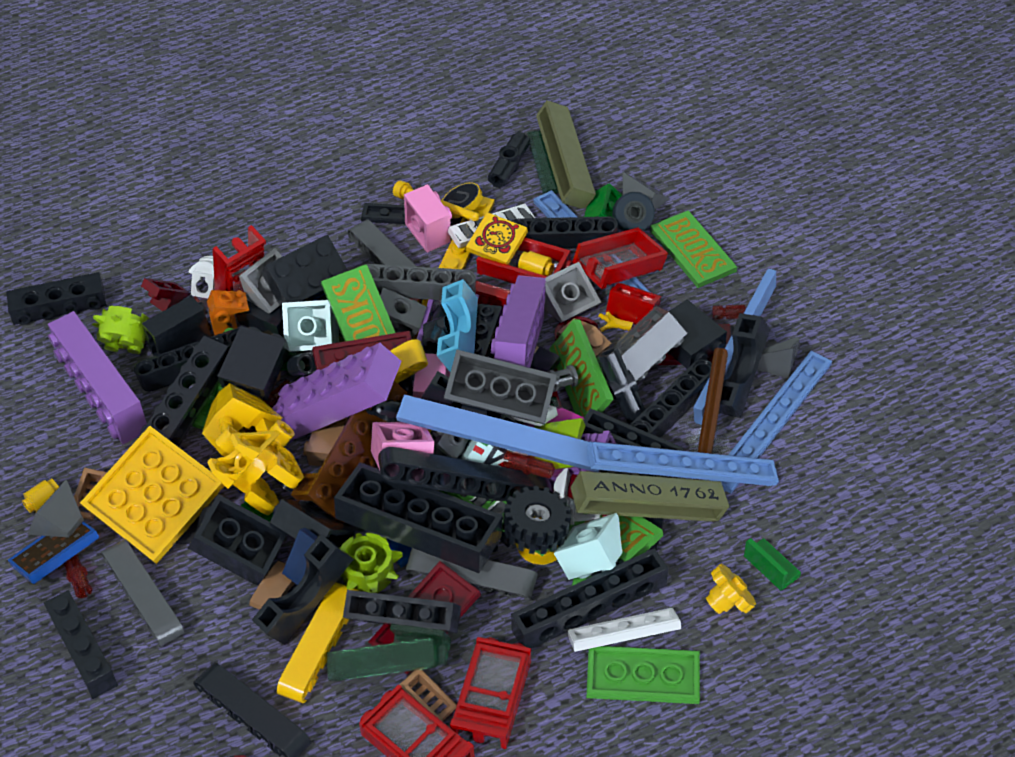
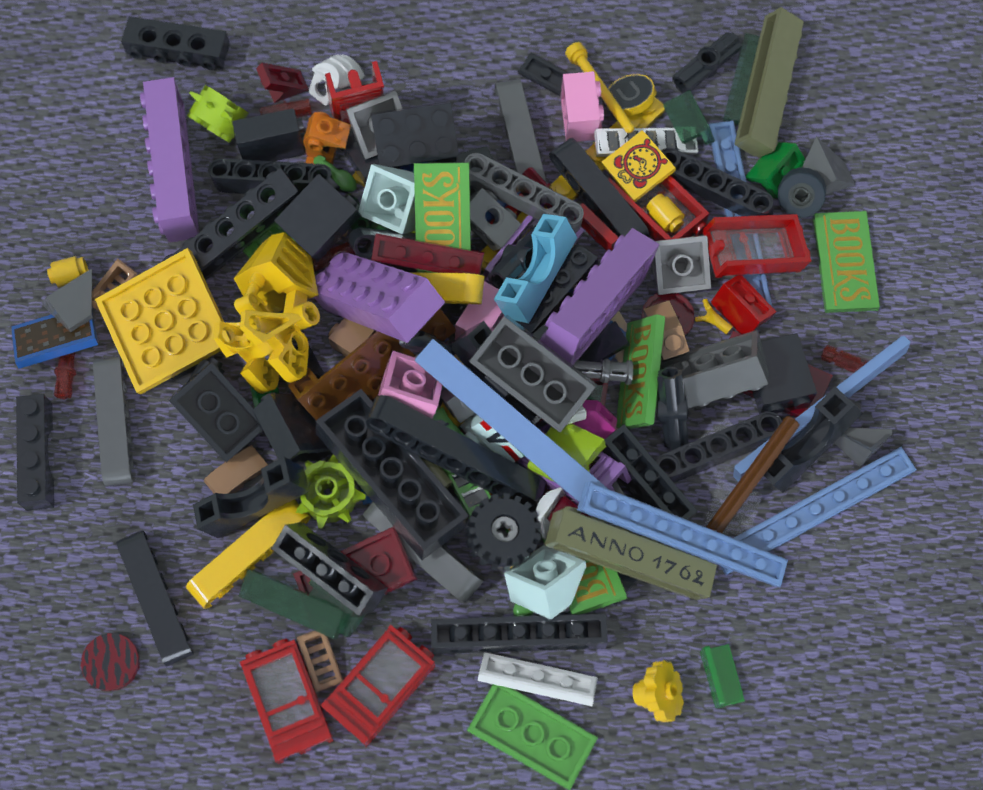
camera: 25 degrees right, 20 degrees up
(296, 562) = (267, 454): dark blue tile -> none
(447, 255) = (595, 189): none -> black beam
(518, 197) = (688, 118): none -> clear green panel
(528, 464) = (526, 467): clear red axle -> none

